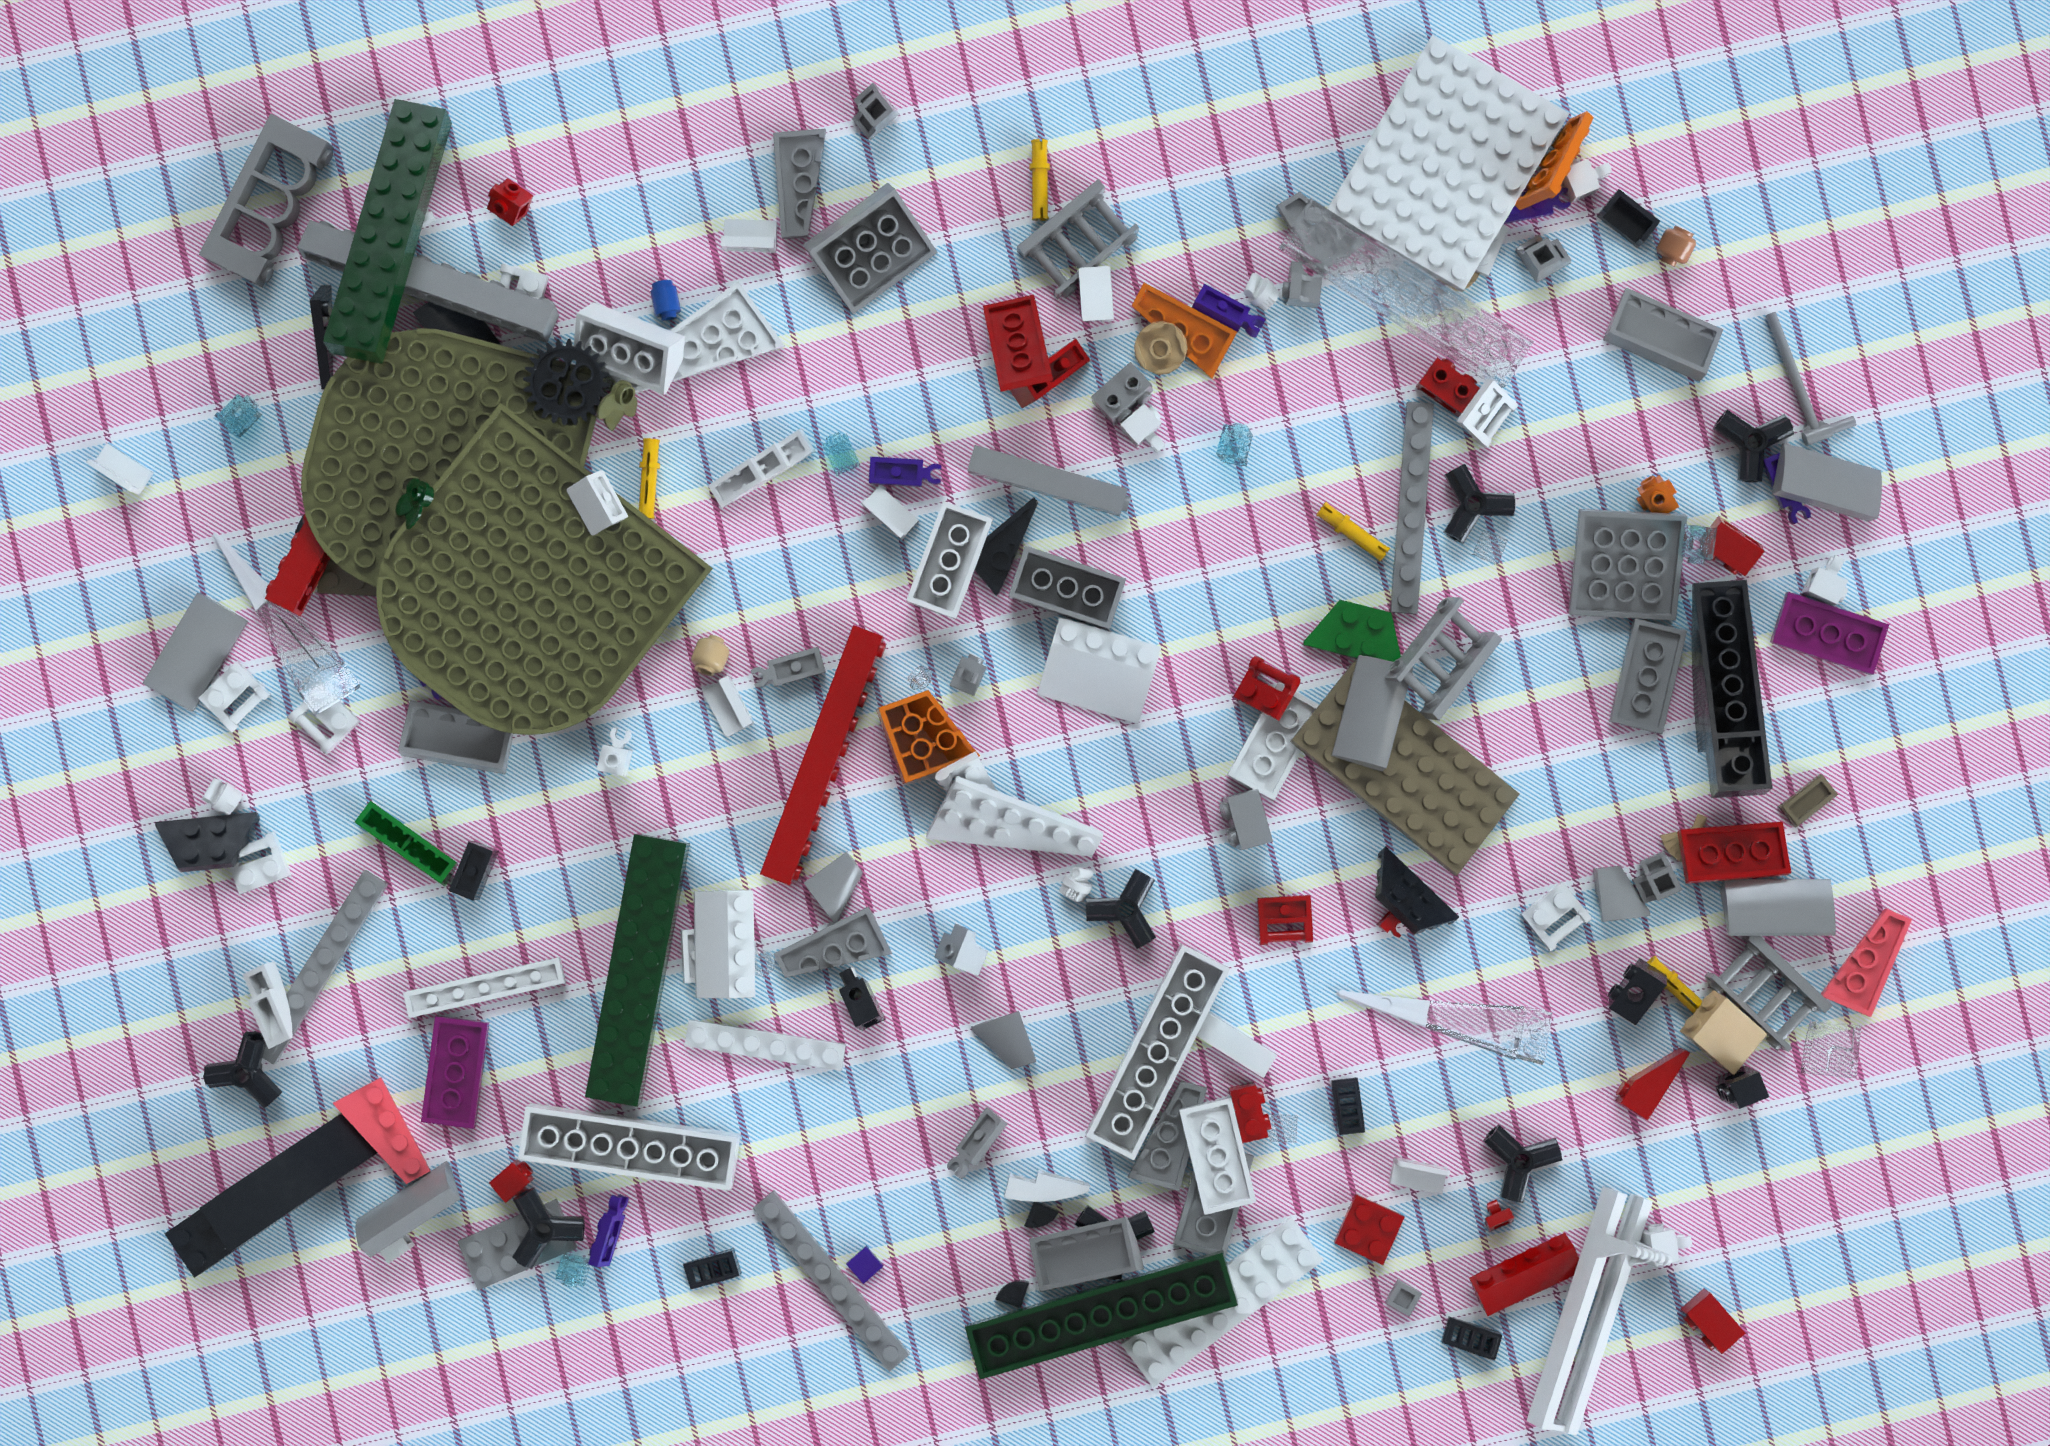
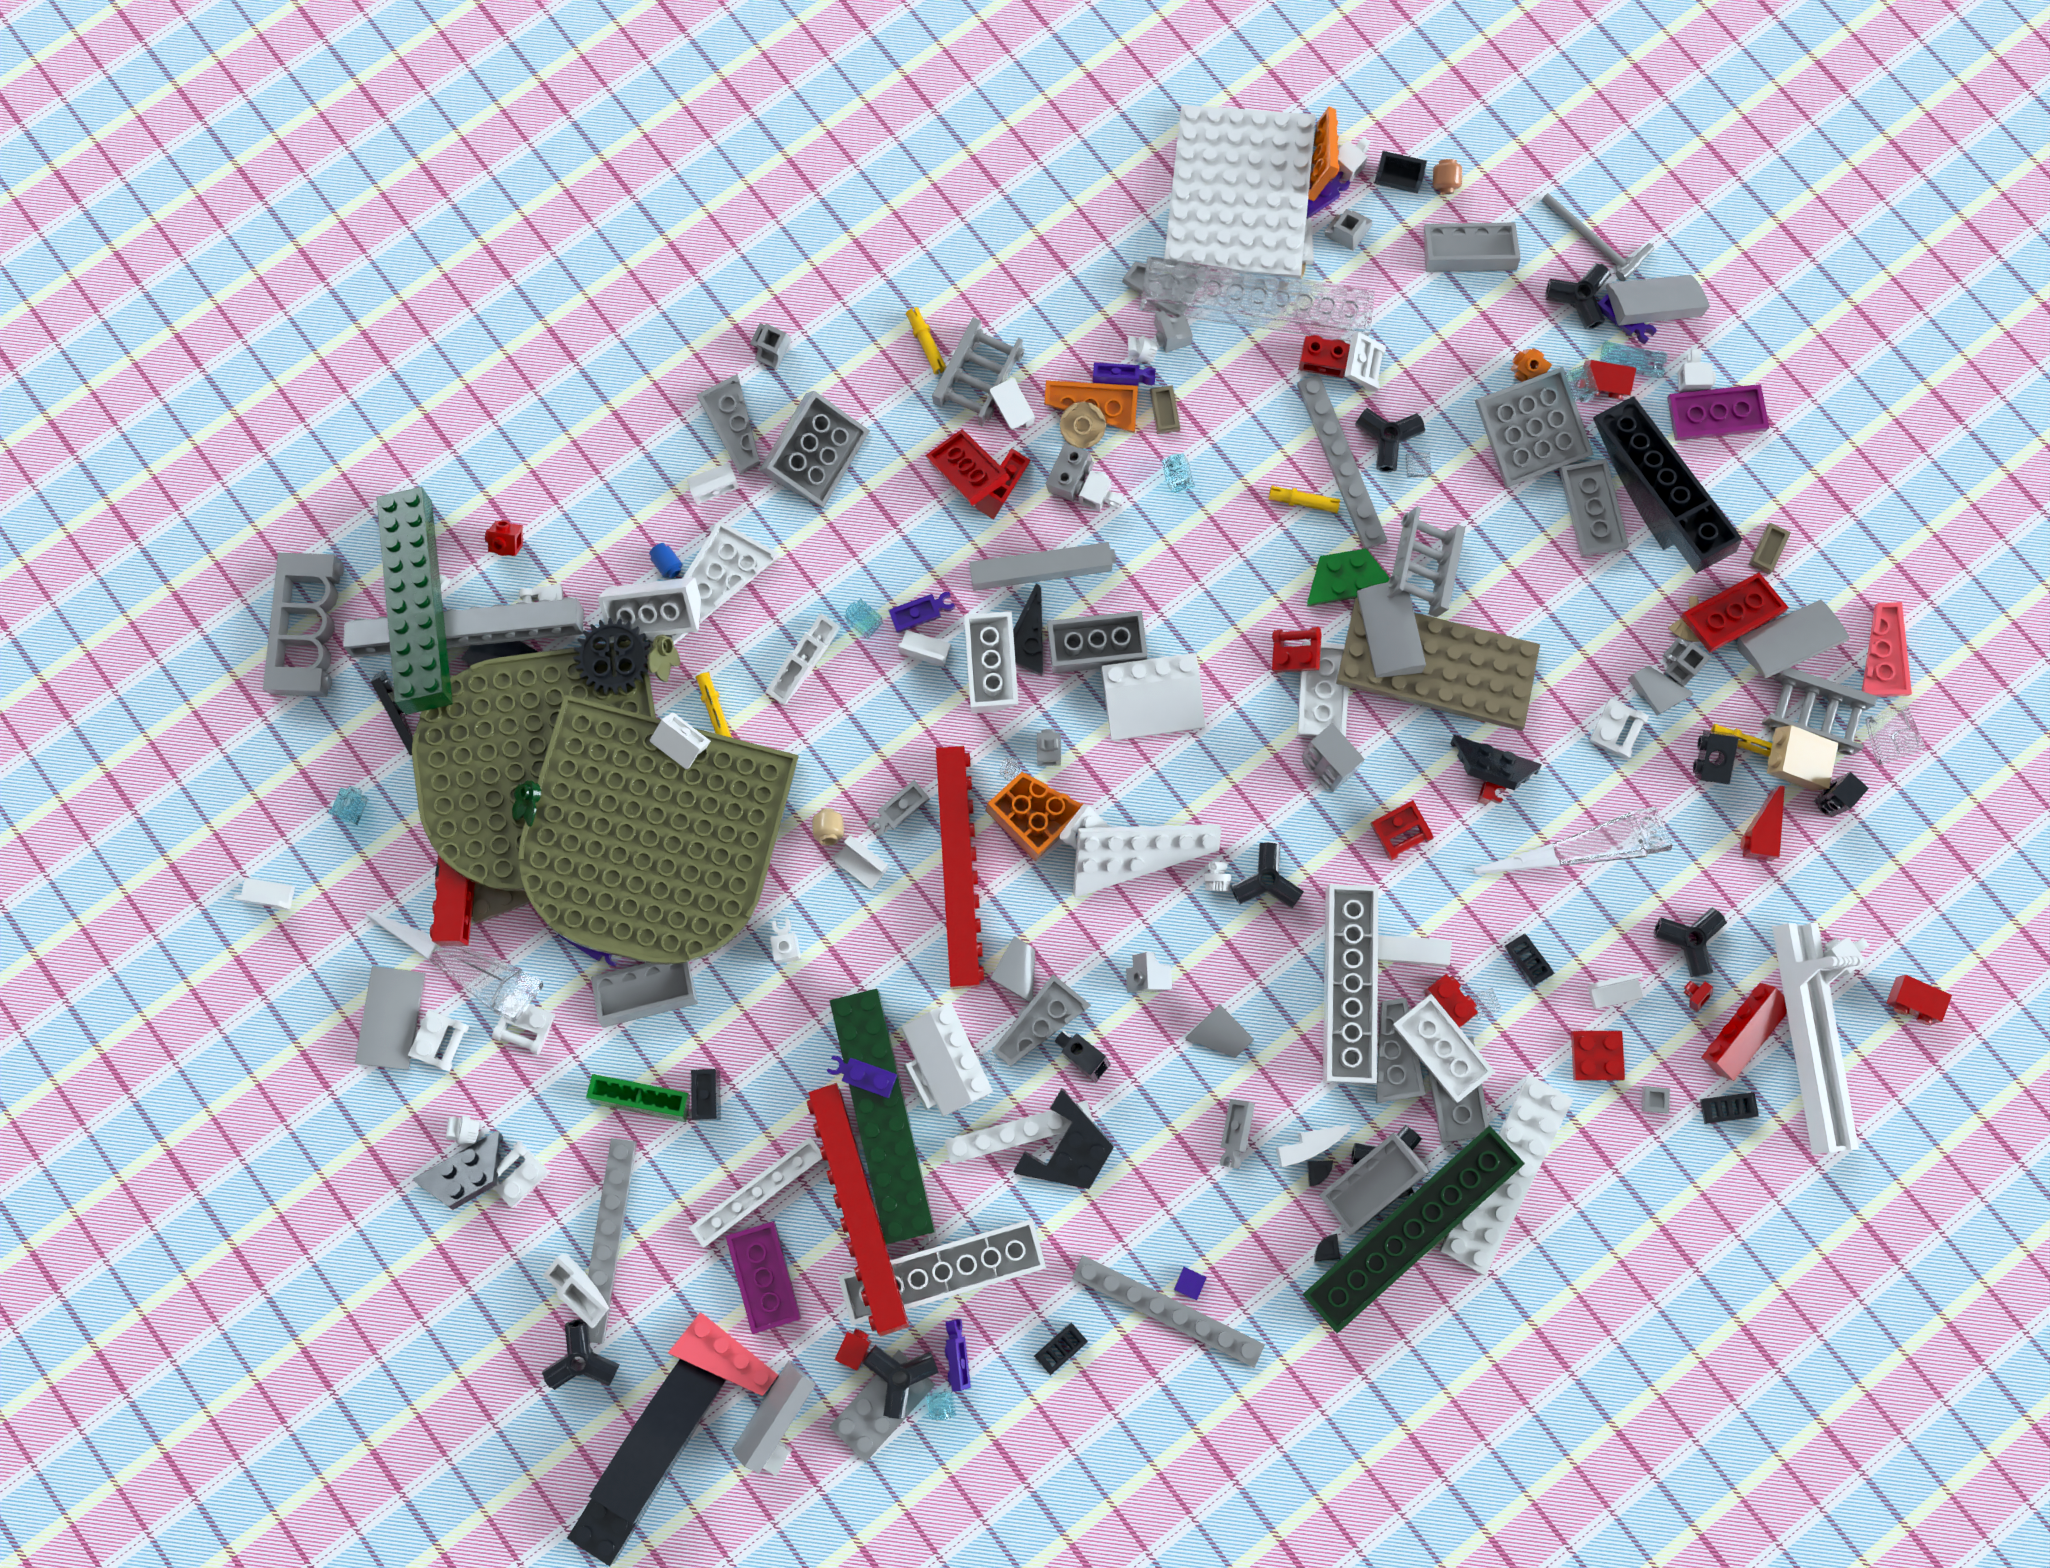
camera: 25 degrees left, 10 degrees down
(572, 1051) = (858, 1210): none -> red brick
(635, 926) = (865, 1076): none -> dark purple plate
(812, 1093) = (1078, 1154): none -> black wing
(1255, 368) = (1165, 409): none -> dark tan tile
(1770, 535) = (1635, 357): none -> clear light blue plate

